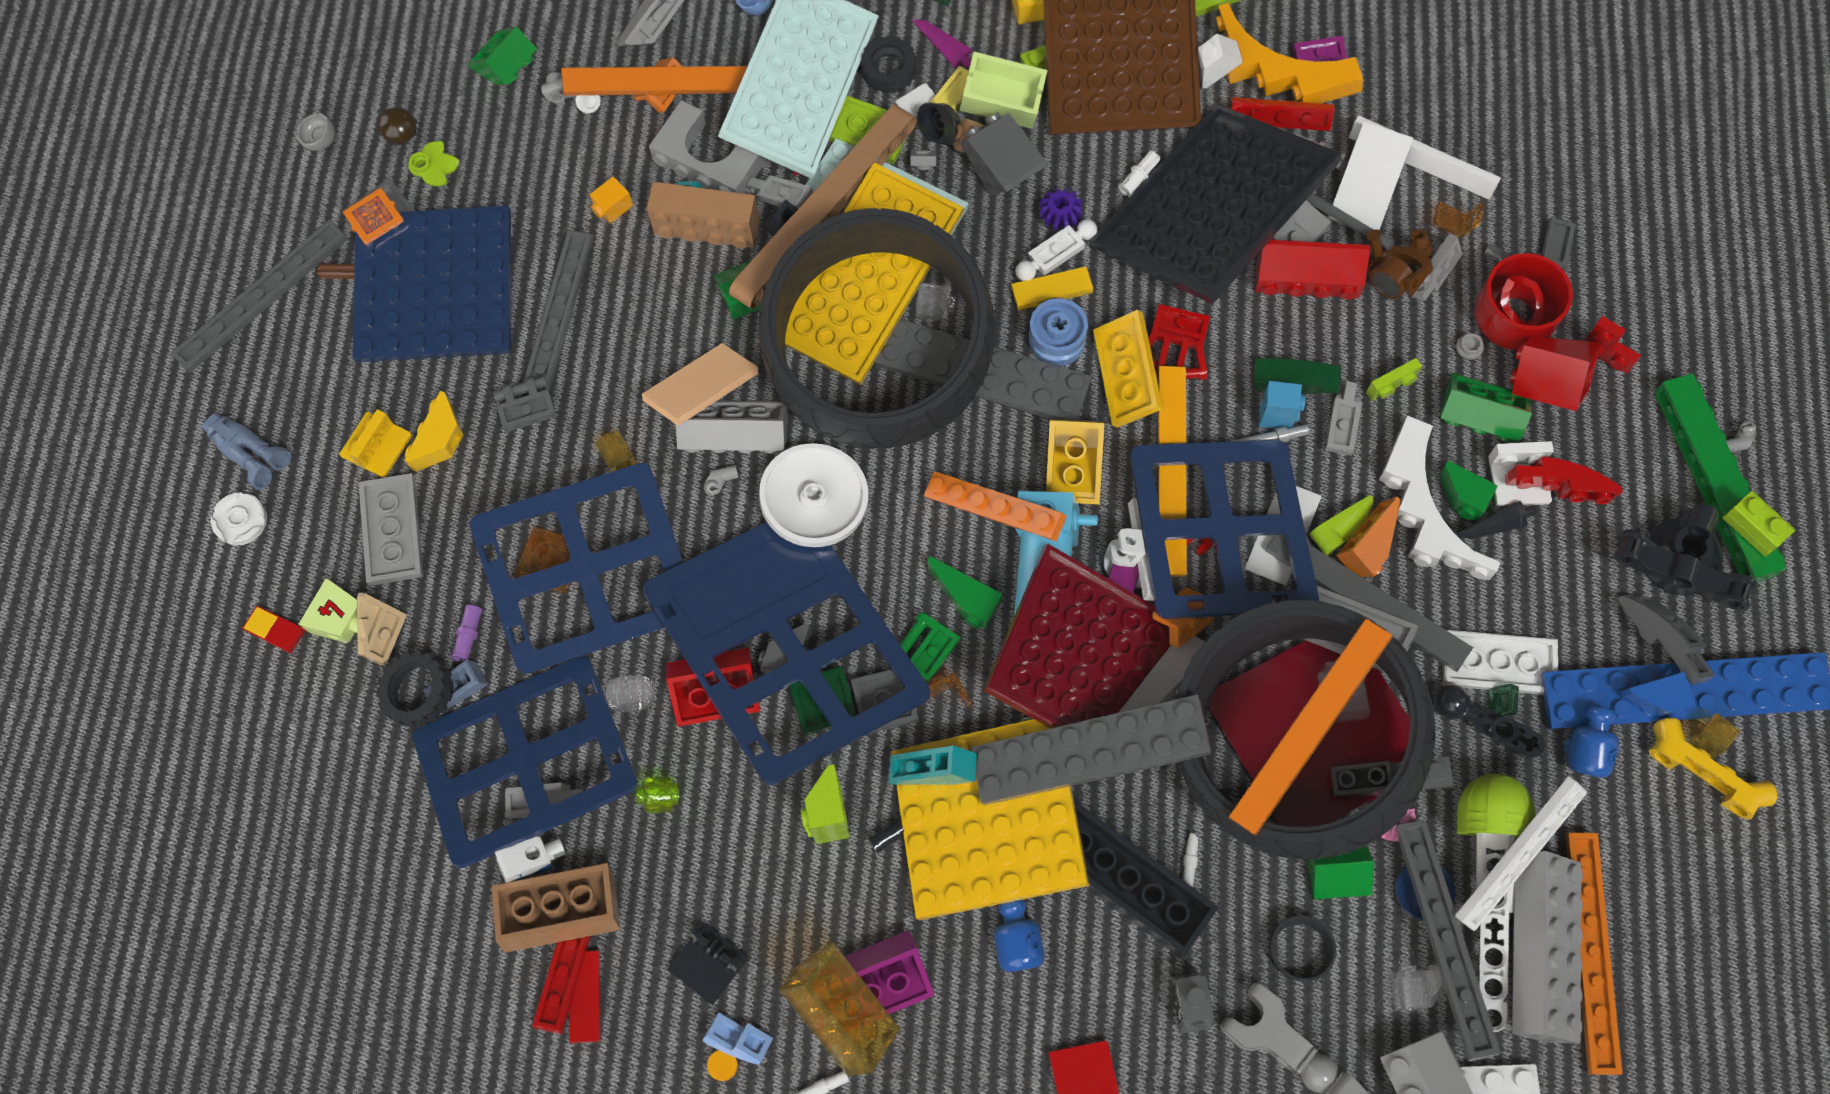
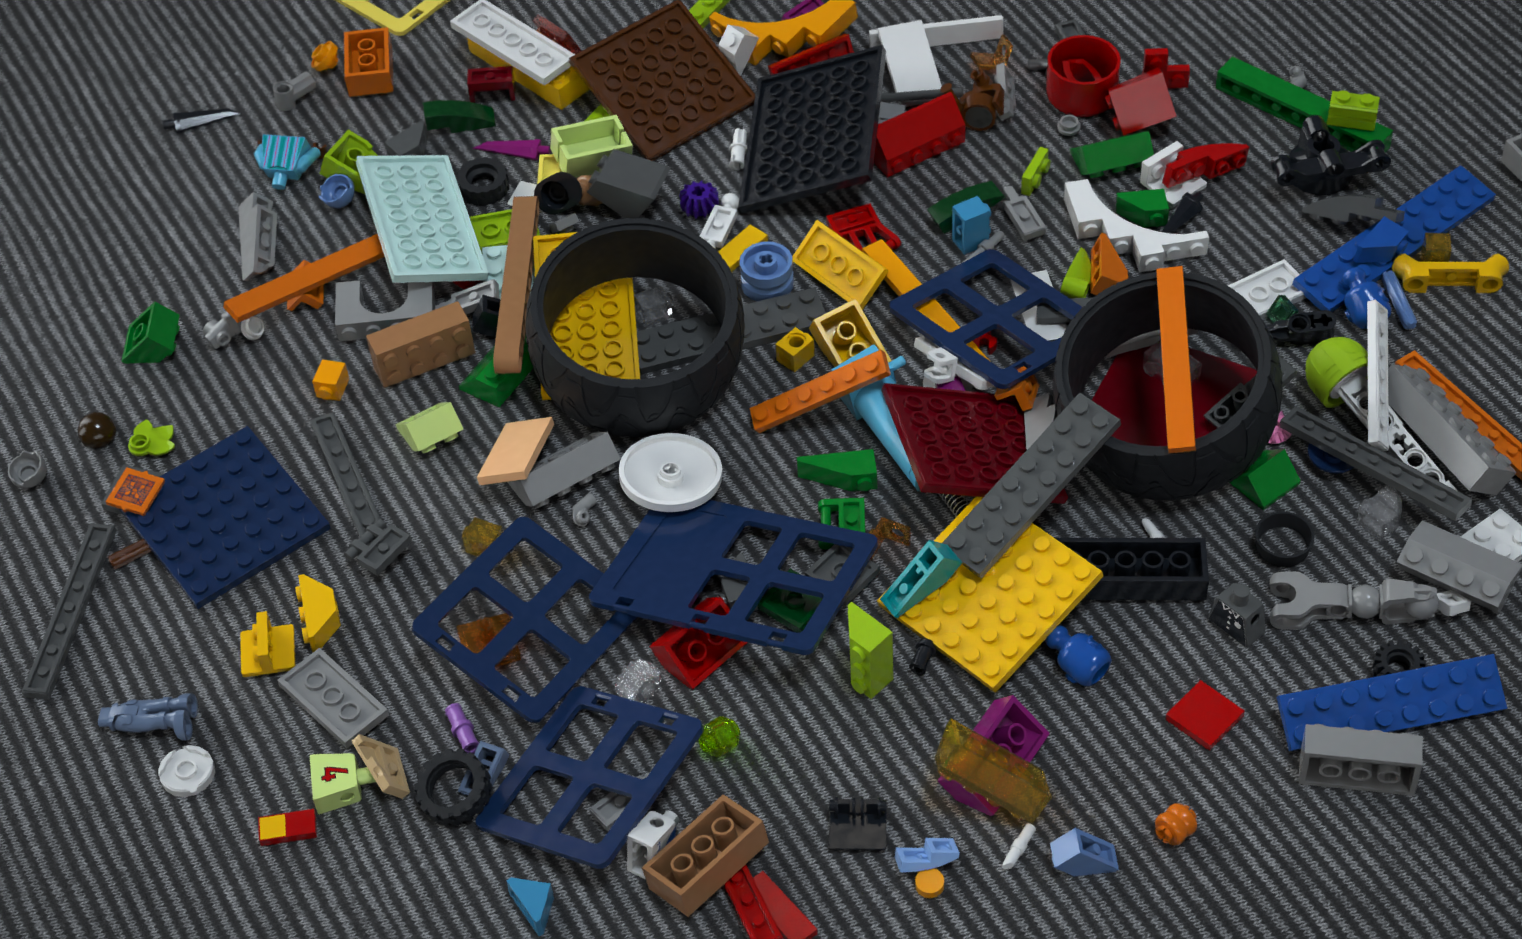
camera: 35 degrees left, 20 degrees down
(398, 846) = (533, 900): none -> dark azure slope
(655, 305) = (430, 427): none -> yellowish green slope
(1017, 443) = (795, 349): none -> yellow brick
(1633, 762) = (1399, 300): none -> medium blue axle

